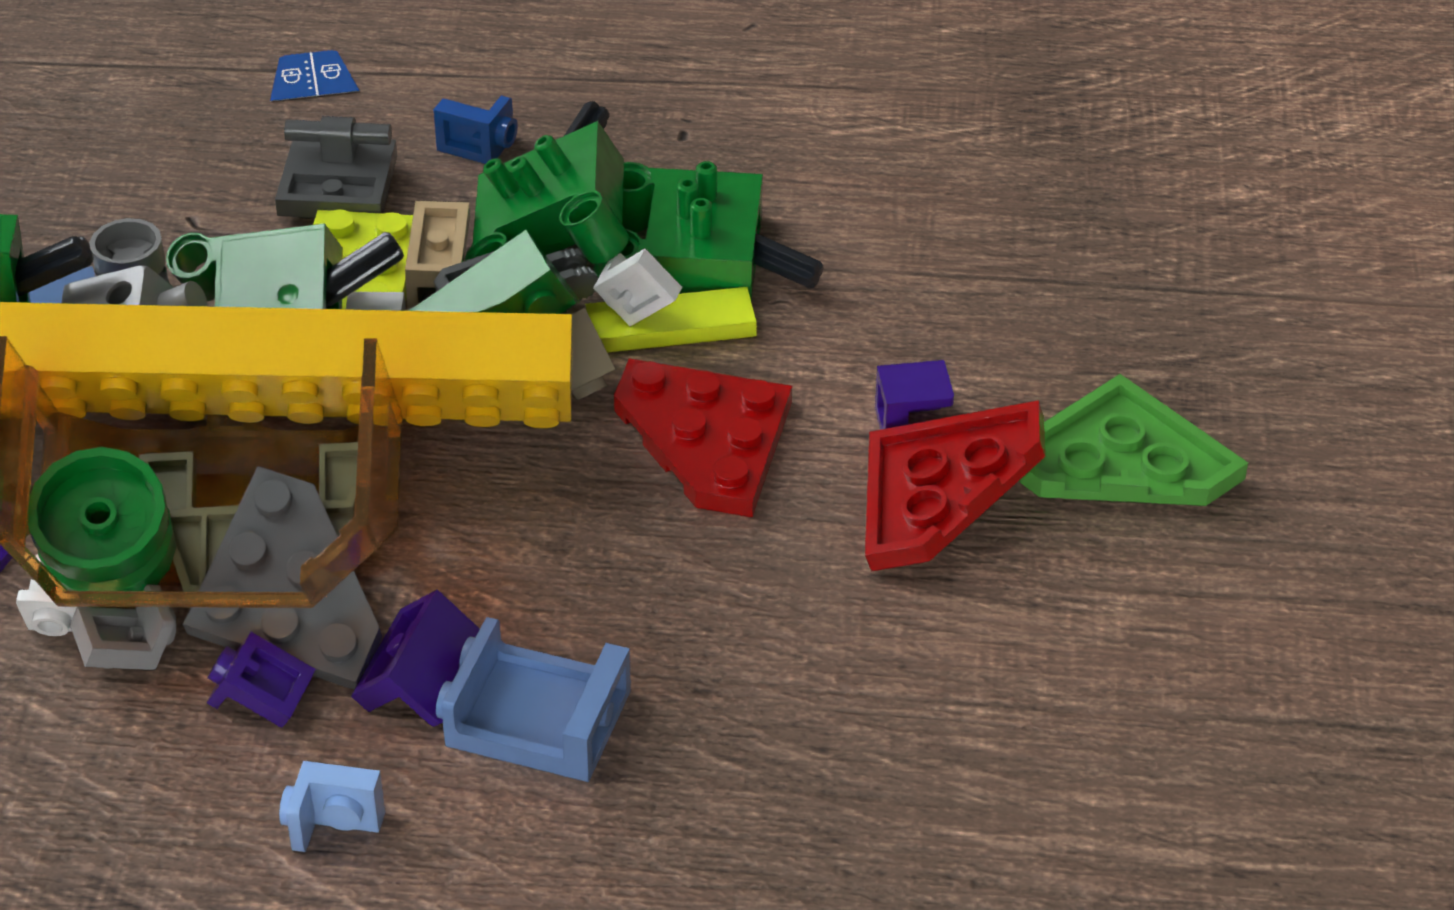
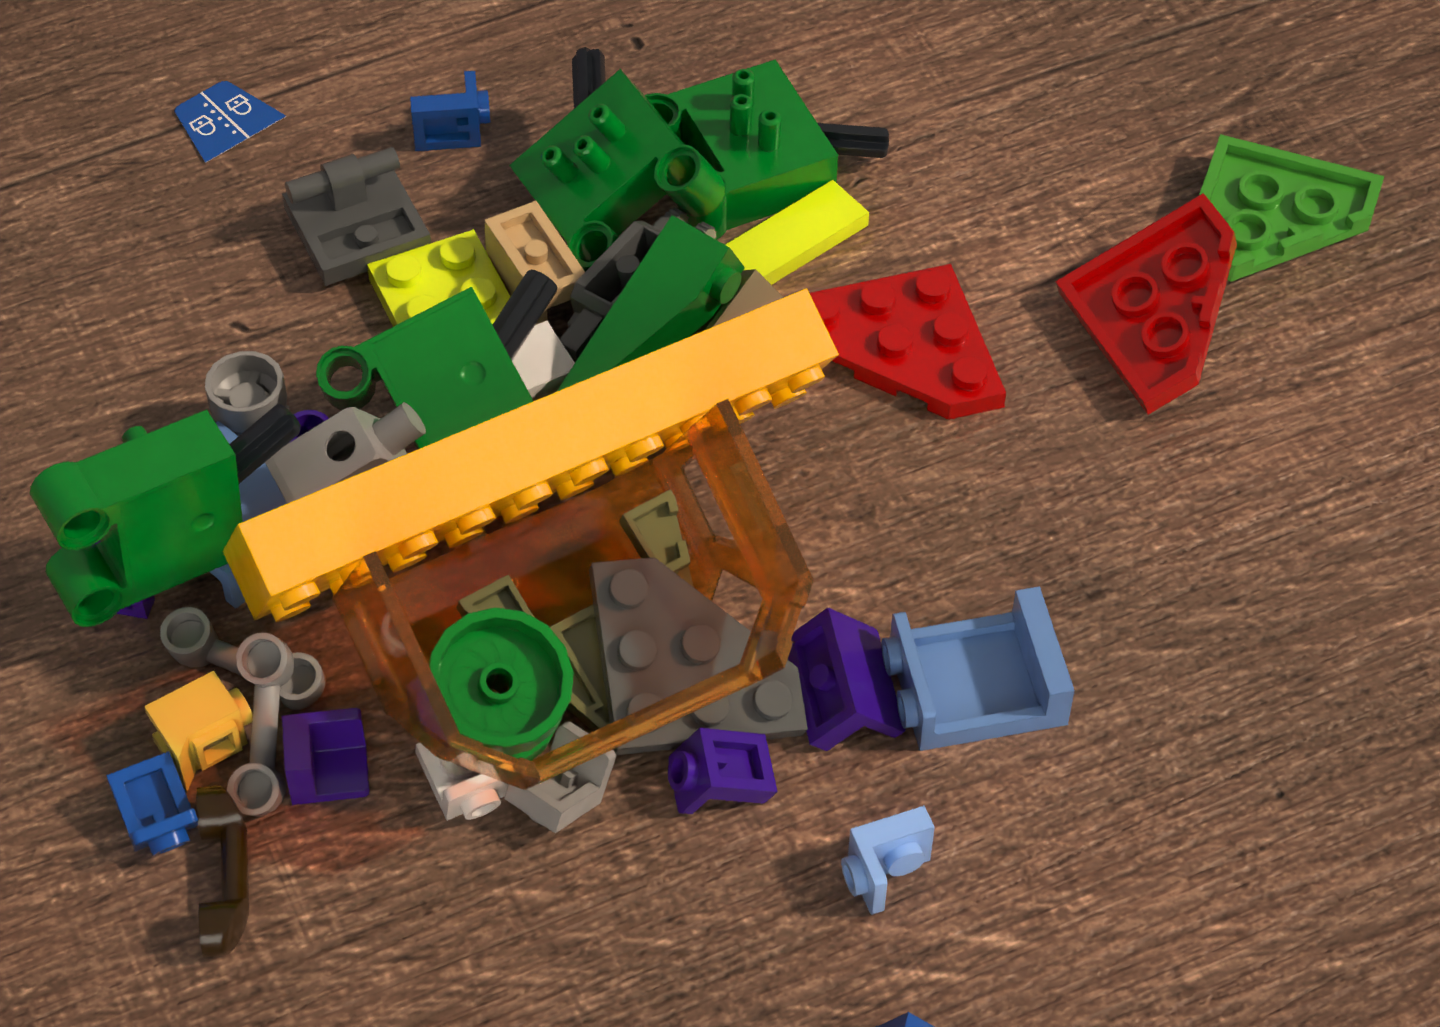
camera: 30 degrees left, 10 degrees up
(636, 286) = (761, 224): white bracket -> none
(910, 389) = (1063, 228): dark purple panel -> none

